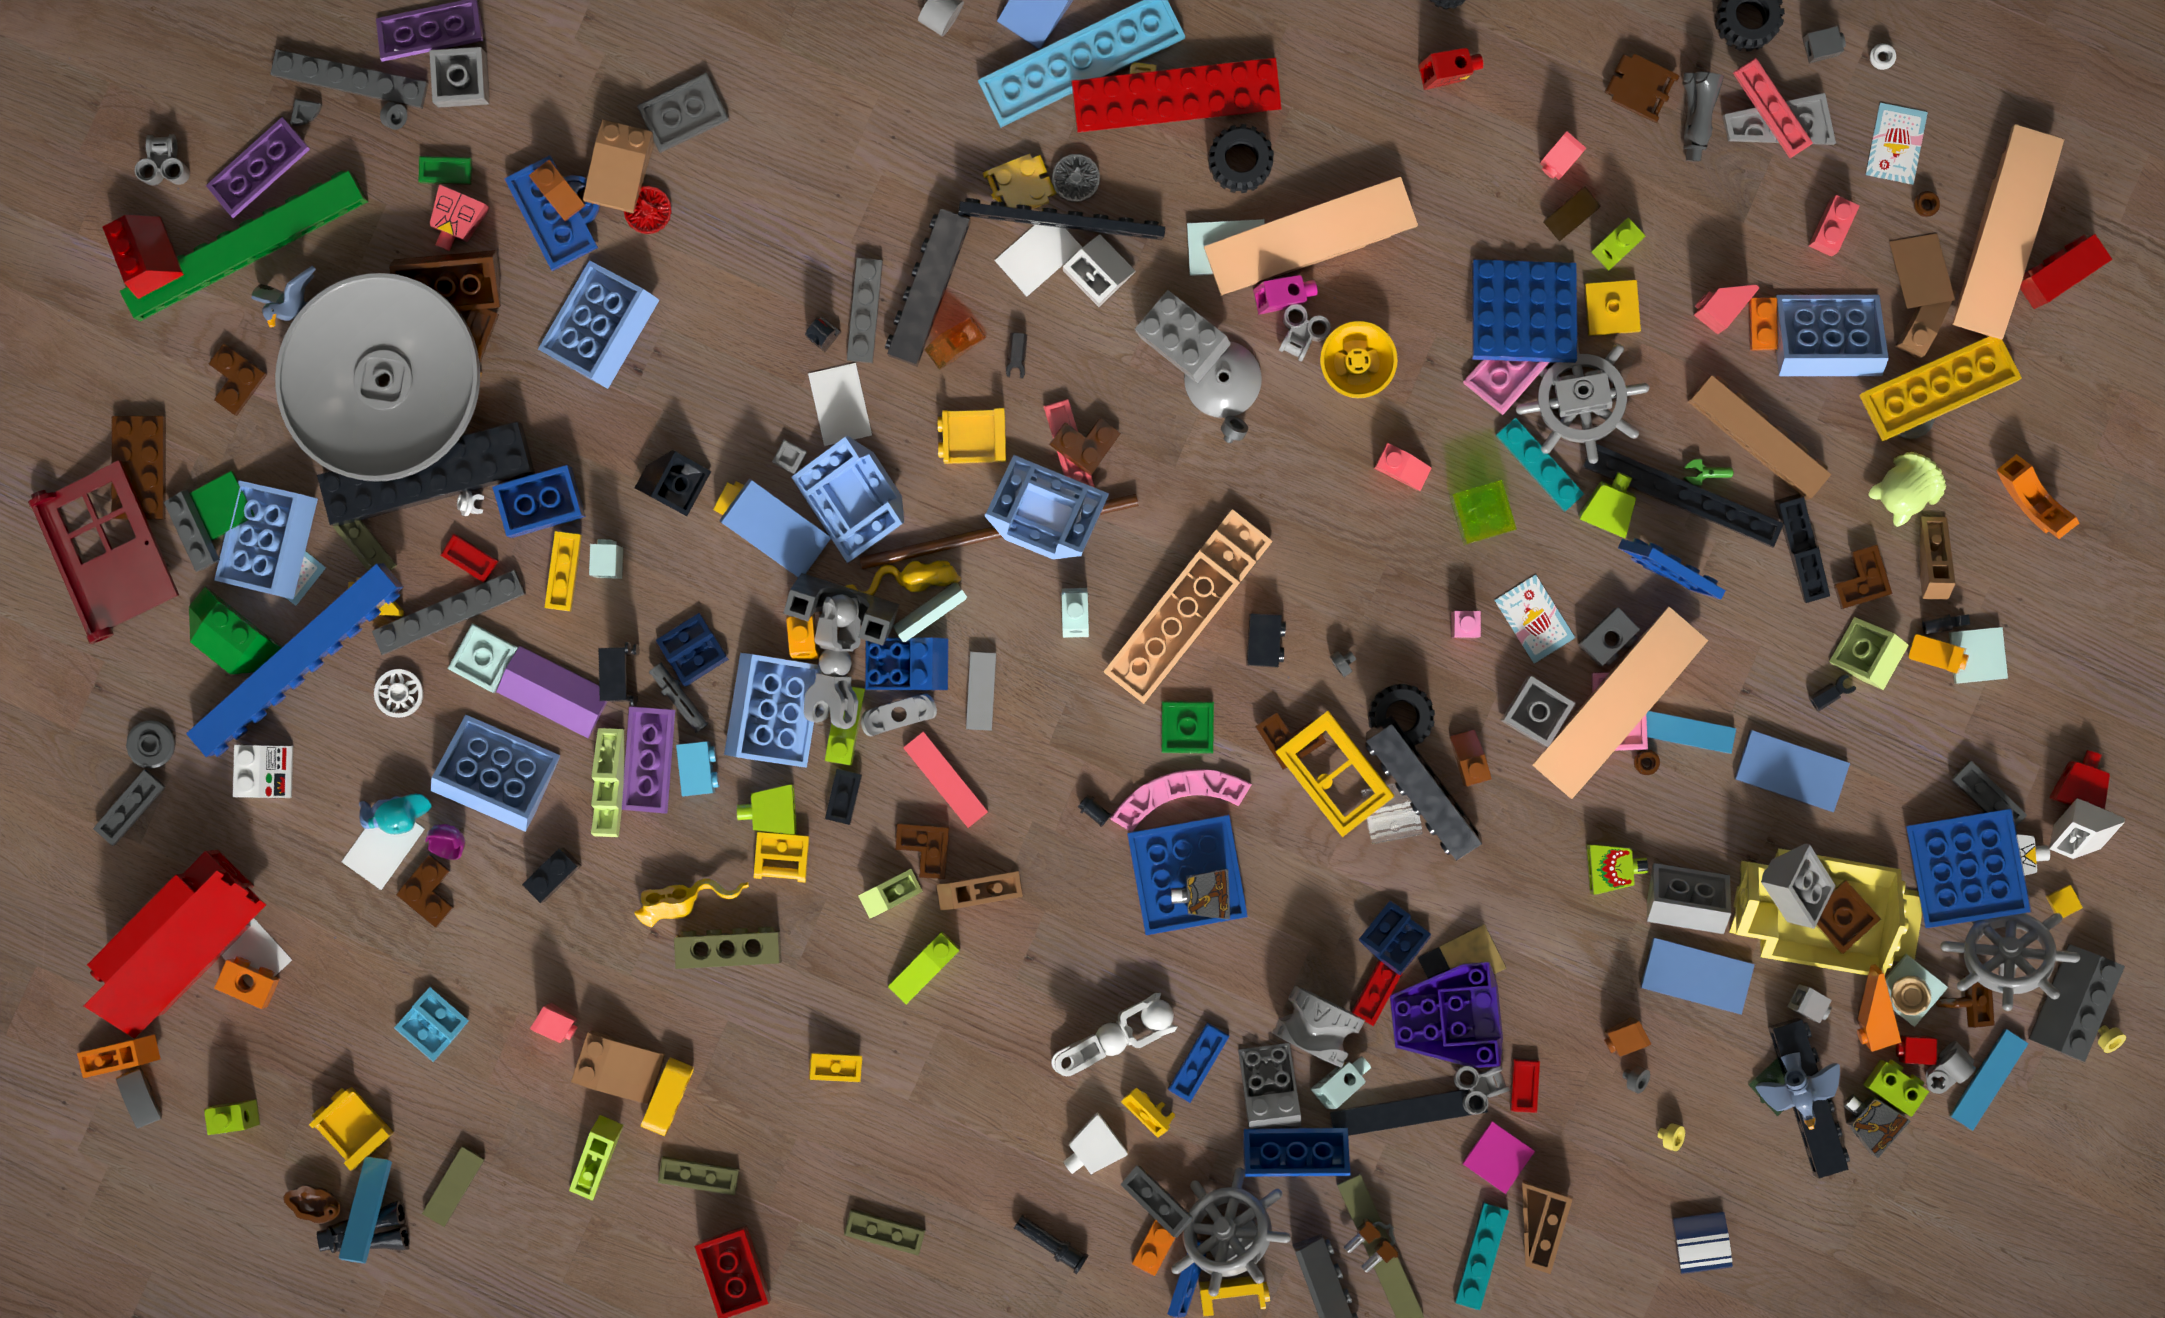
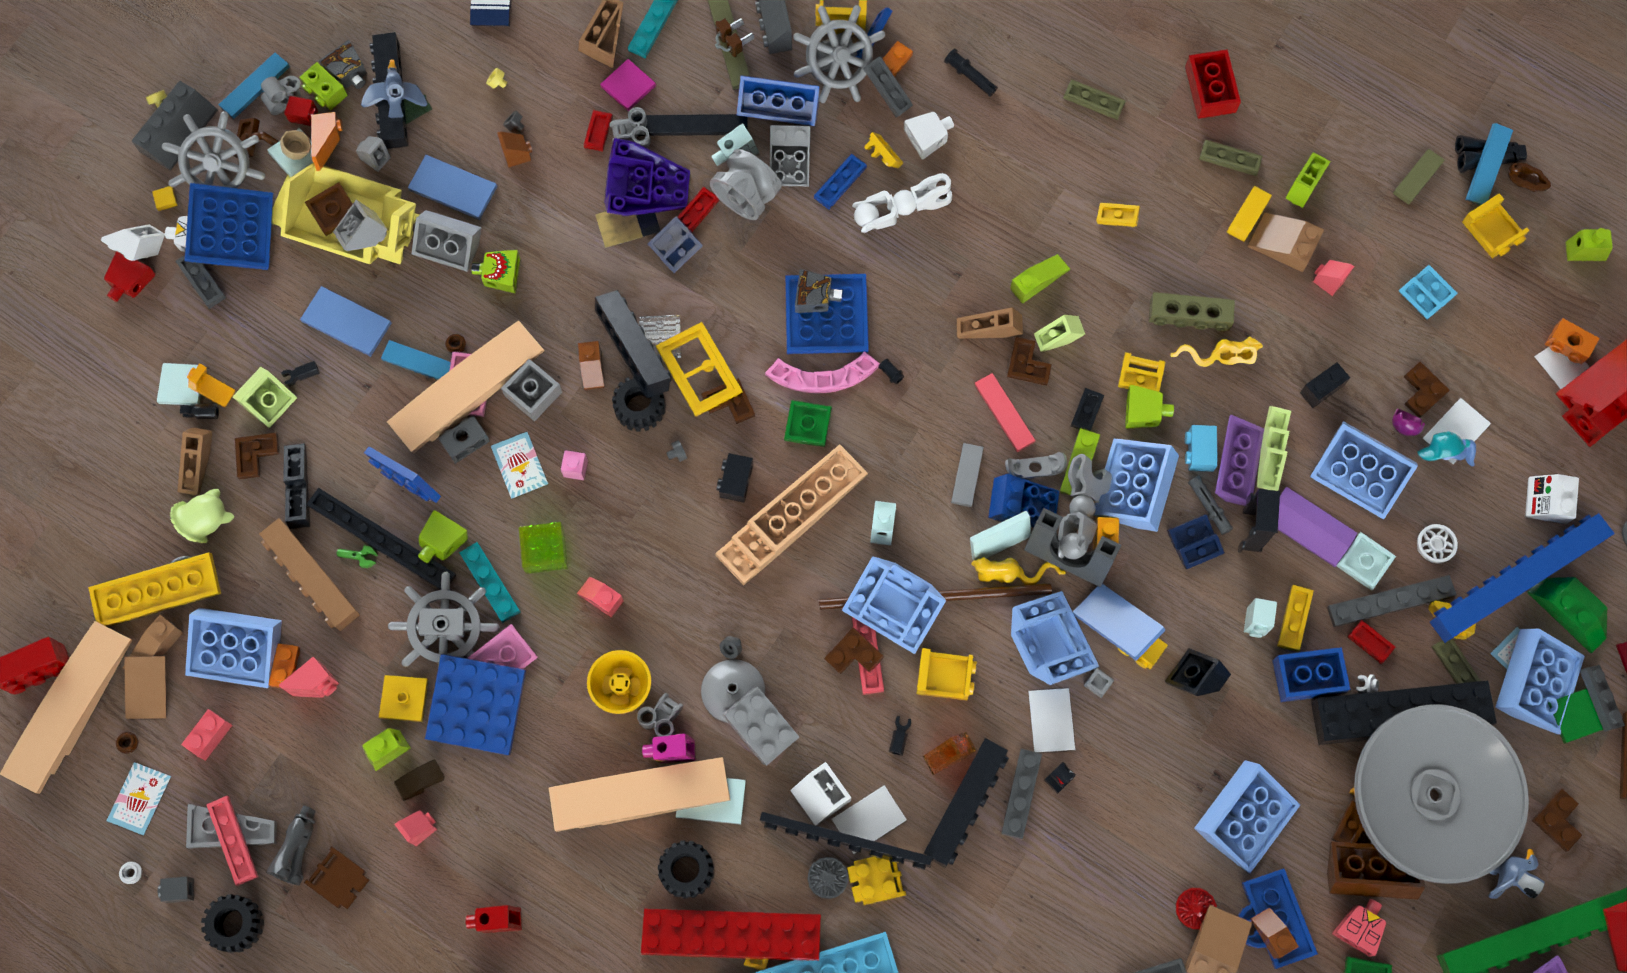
camera: 170 degrees left, 15 degrees down
(2033, 499) = (103, 489): orange arch -> none

